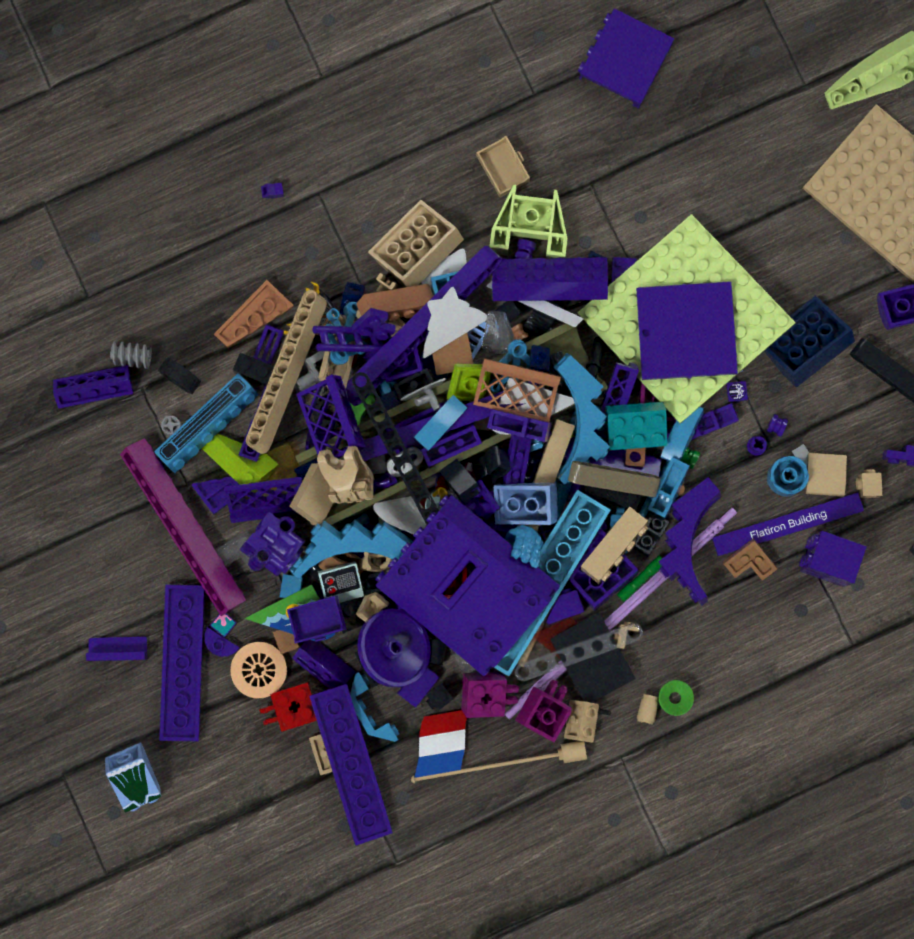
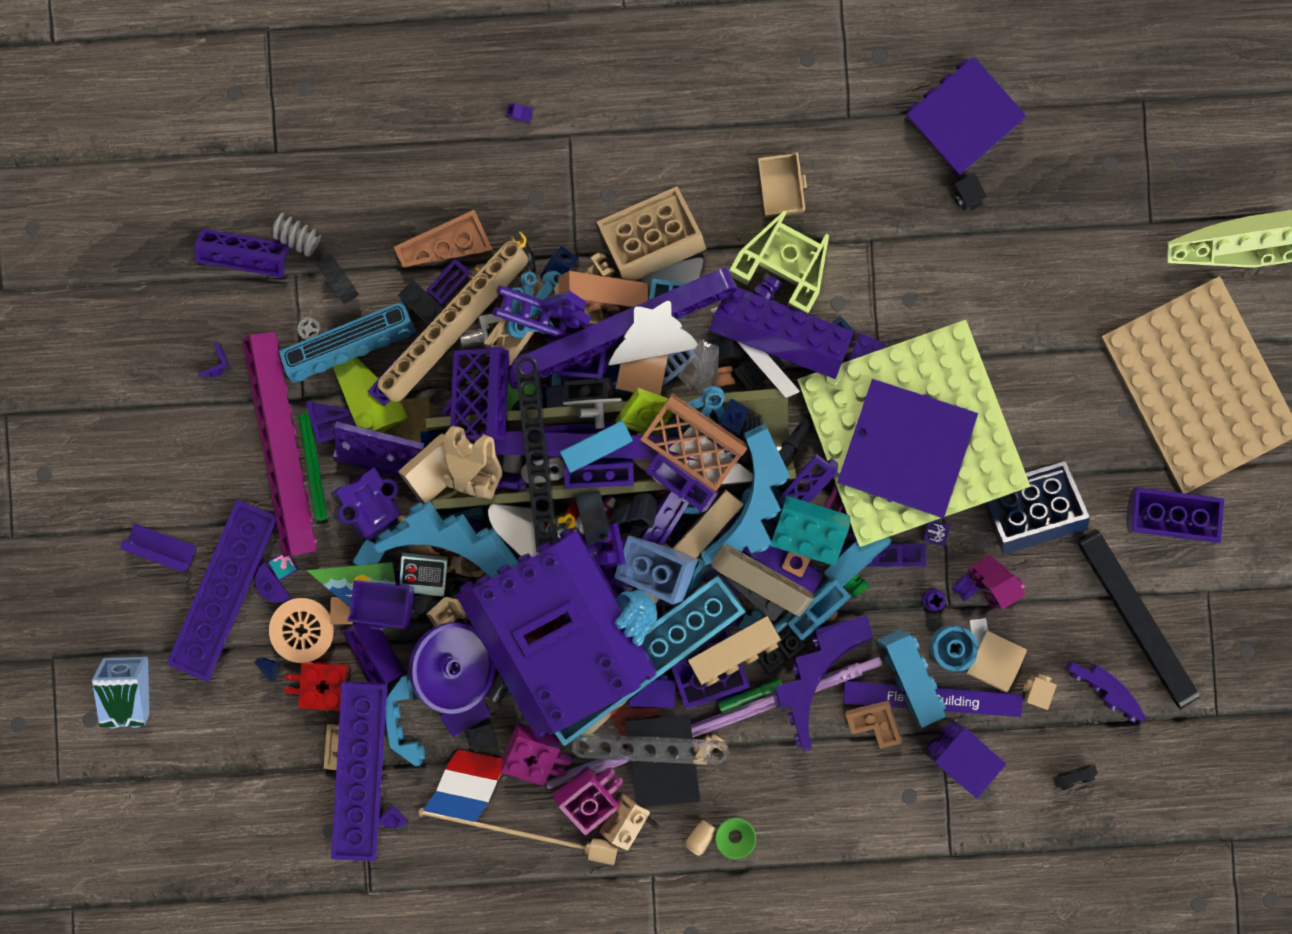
camera: 25 degrees right, 5 degrees up
(109, 488) = (217, 370): none -> dark purple bracket
(217, 534) = (312, 467): none -> green axle
(245, 710) = (268, 667): none -> clear blue slope
(392, 794) = (392, 818): none -> dark purple tile
(653, 115) = (969, 193): none -> black brick
(765, 511) = (913, 677): none -> dark azure wedge
(800, 410) = (997, 582): none -> magenta wedge

